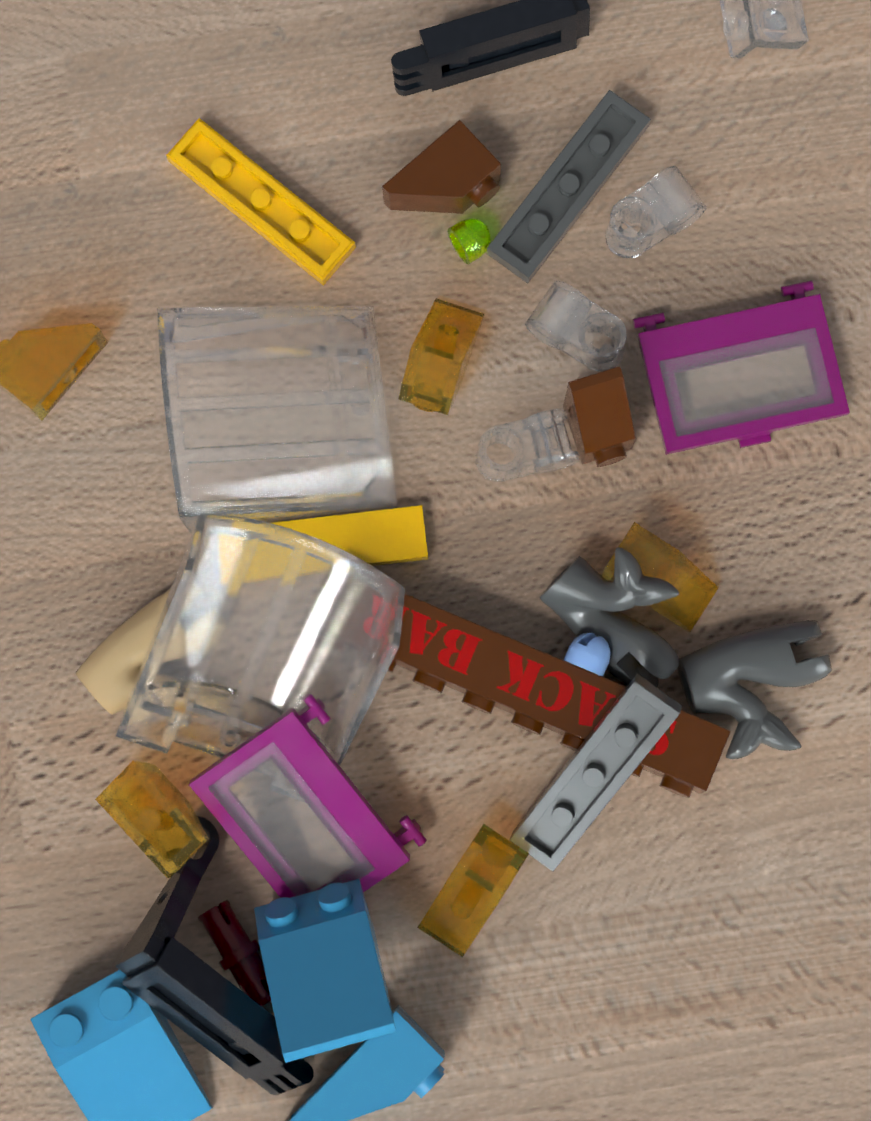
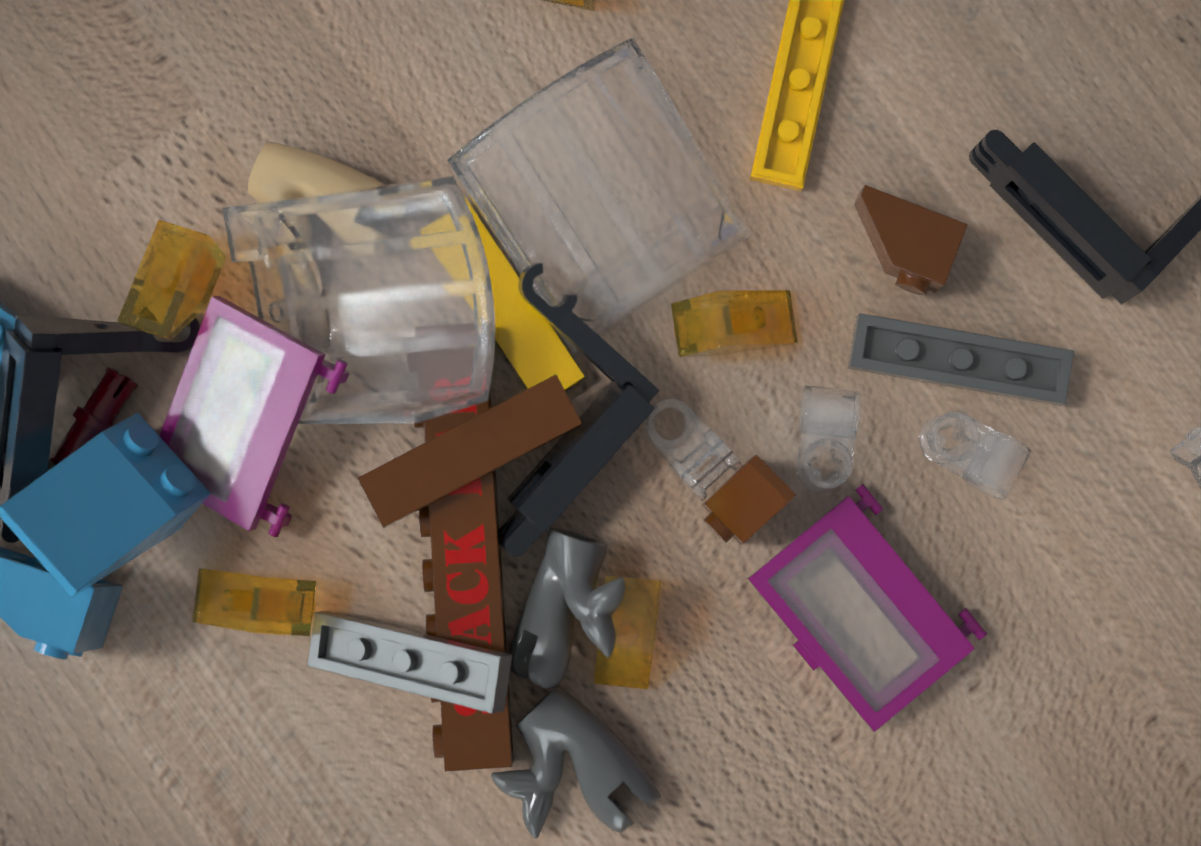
camera: 60 degrees right, 5 degrees up
(439, 628) = (469, 451): none -> reddish brown tile
(470, 239) = (861, 293): clear neon green hinge -> none
(479, 524) = (586, 448): none -> black hinge
(589, 653) = (518, 600): light blue hinge -> none

